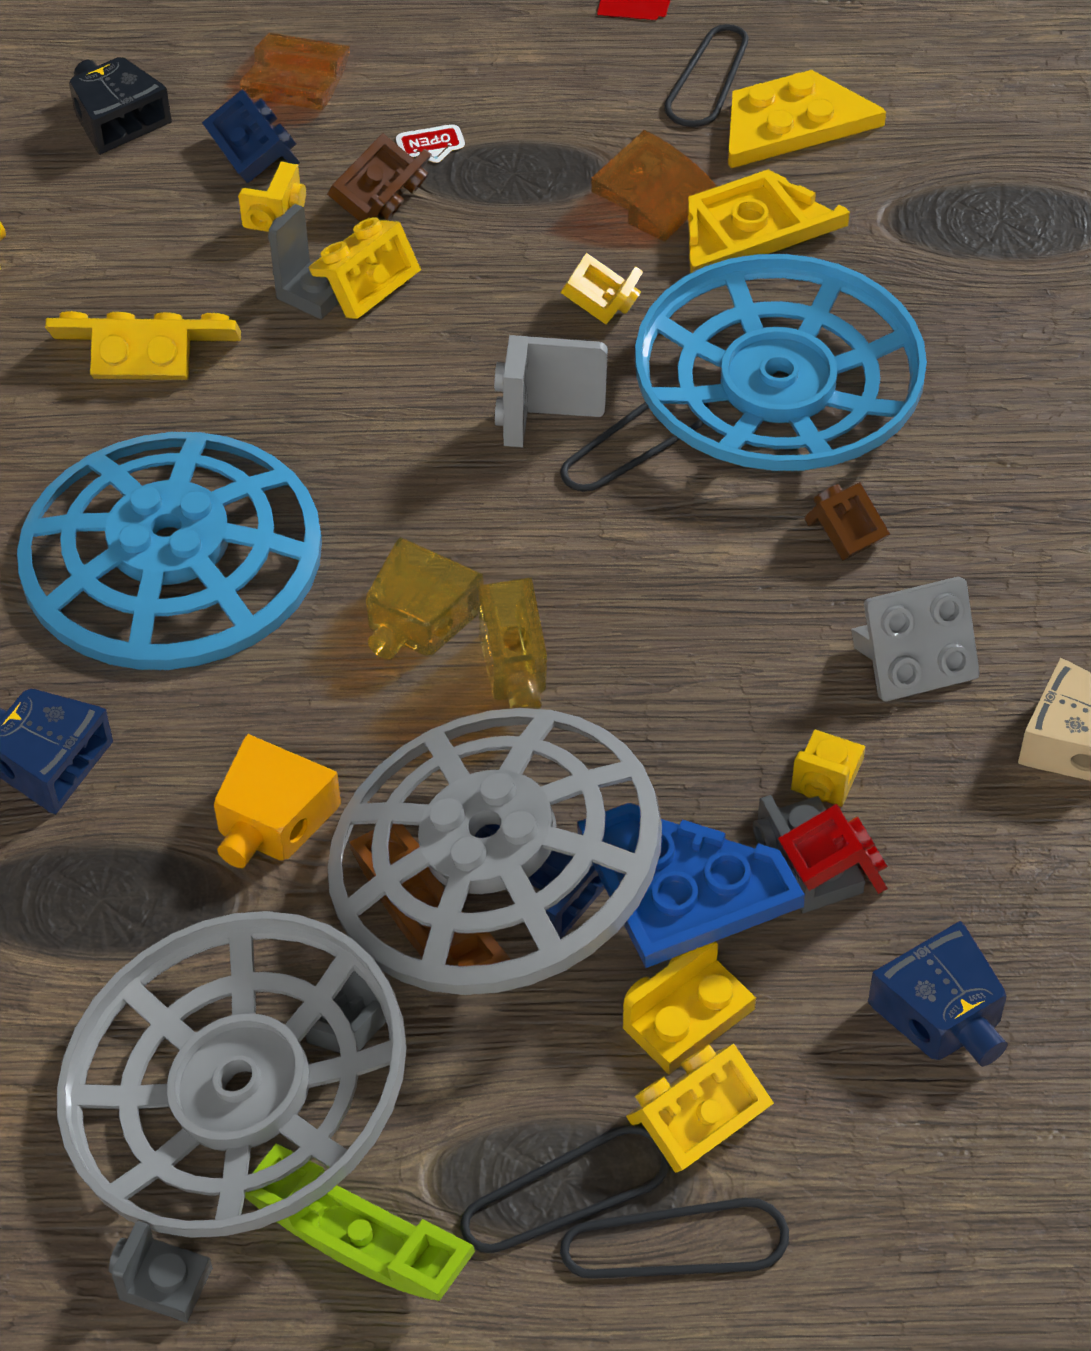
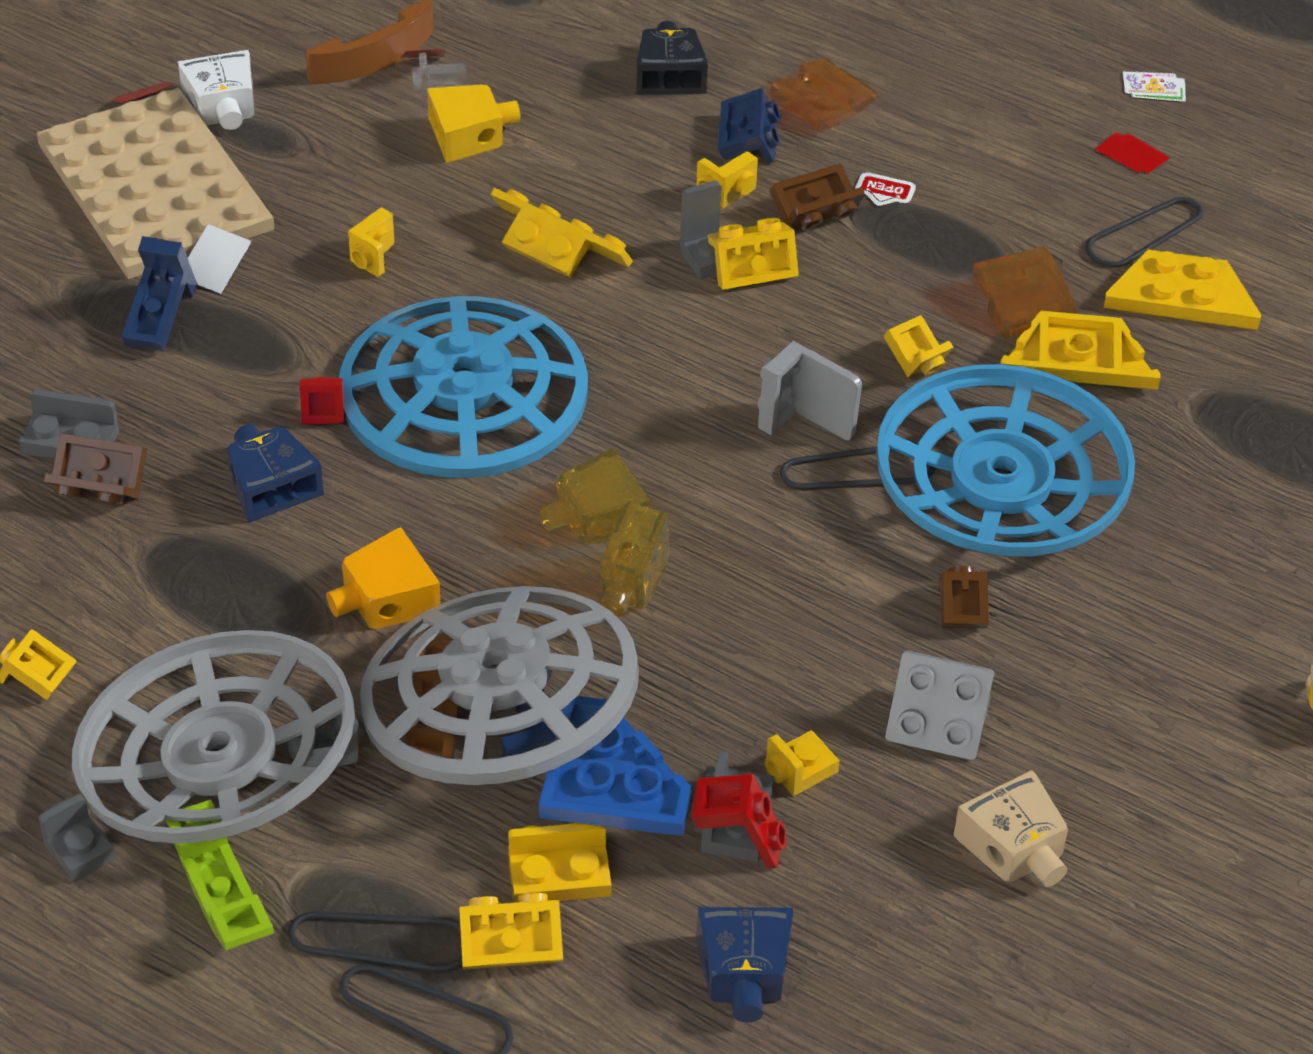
camera: 30 degrees right, 5 degrees down
(38, 638) = (322, 400): none -> red tile

